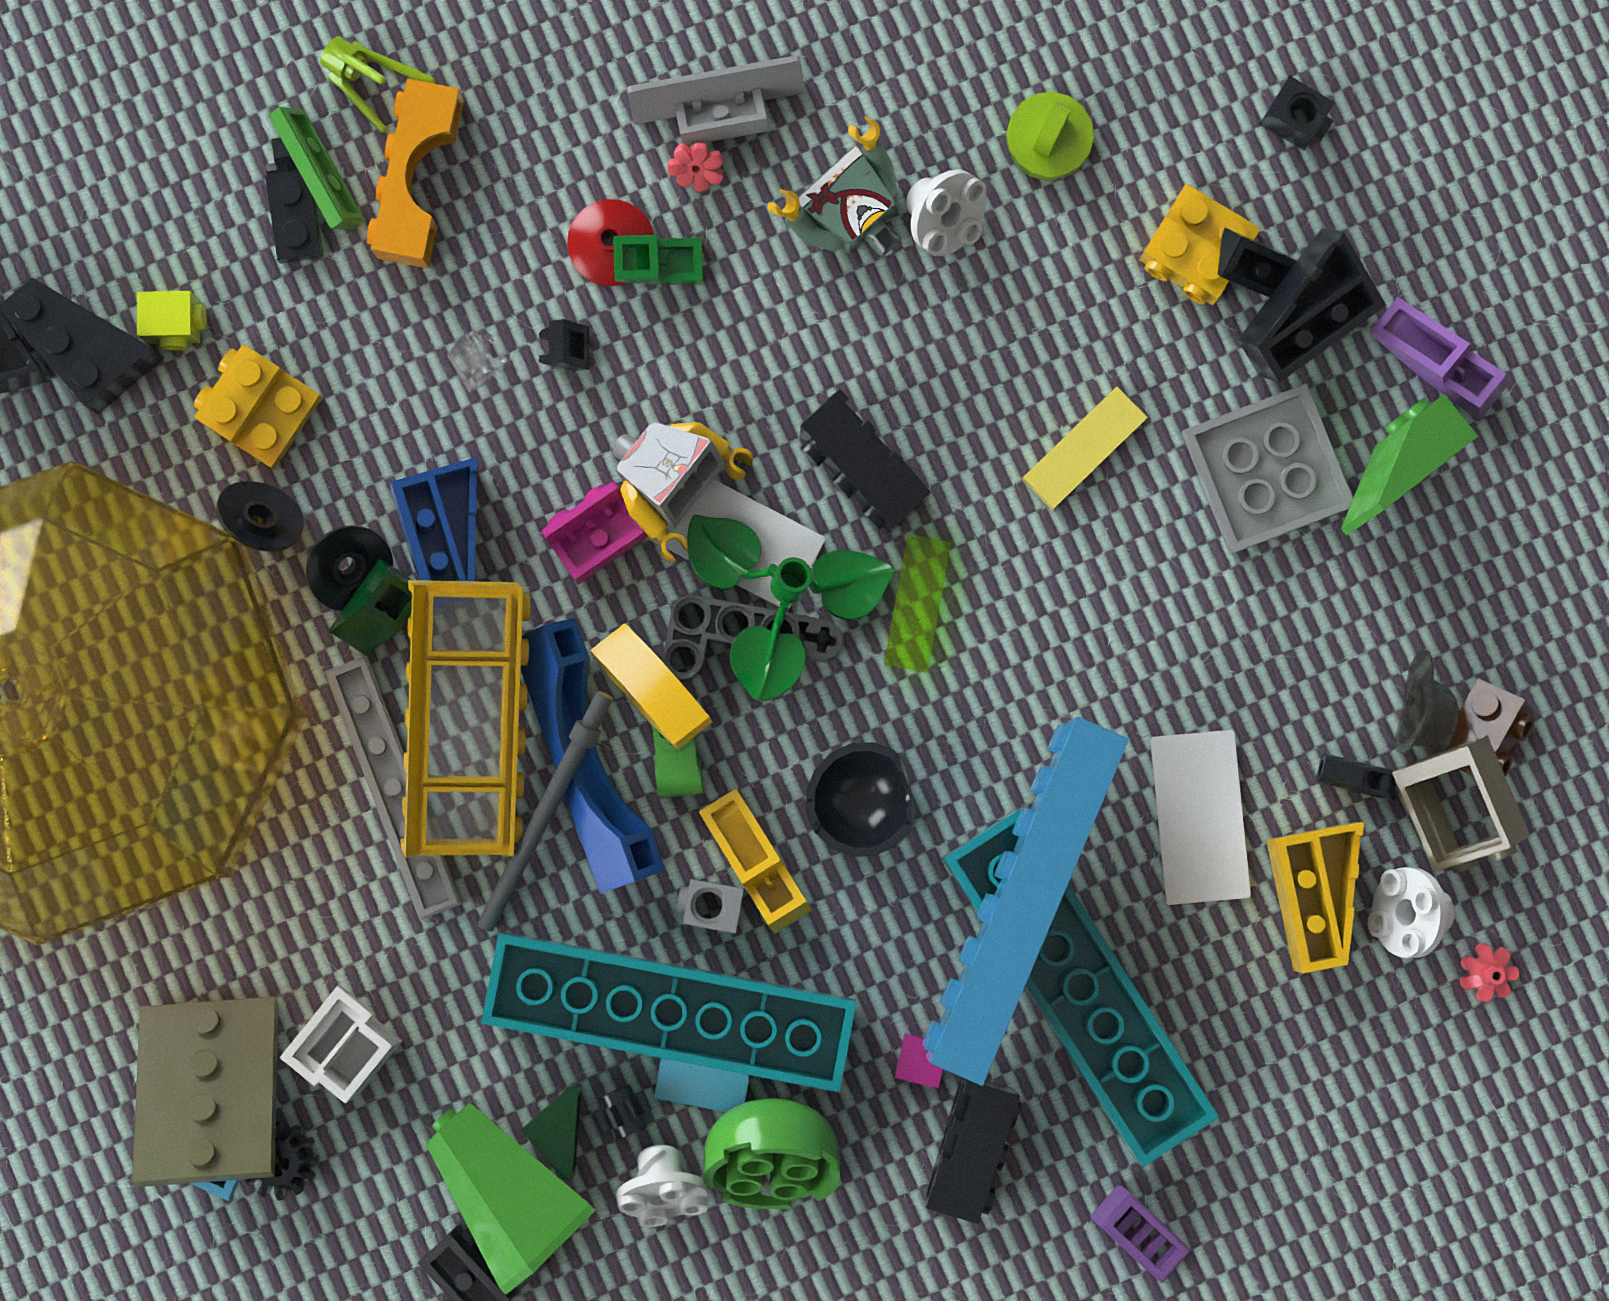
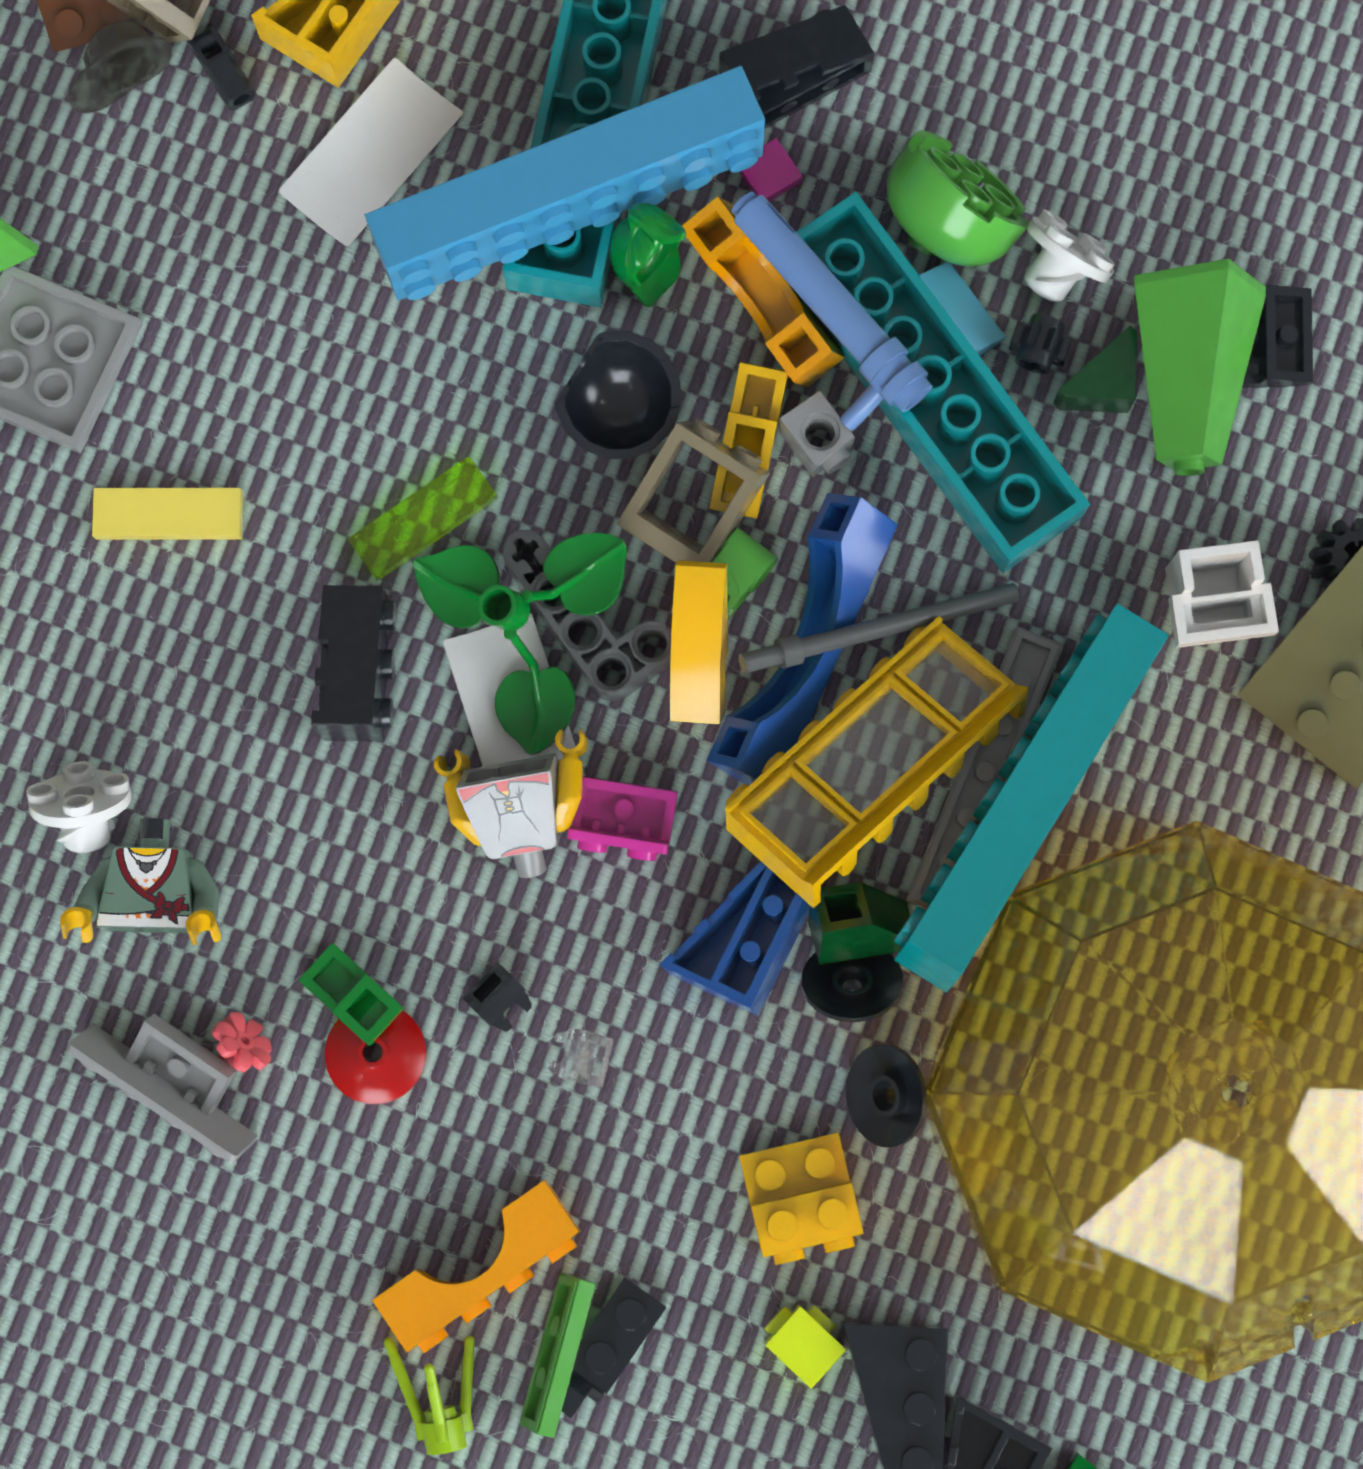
camera: 130 degrees left, 5 degrees down
(339, 789) = (1036, 788): none -> teal brick
(707, 986) = (881, 357): none -> medium blue cylinder
(742, 741) = (665, 537): none -> dark tan window
(880, 976) = (780, 313): none -> light orange arch
(940, 914) = (647, 251): none -> green hair

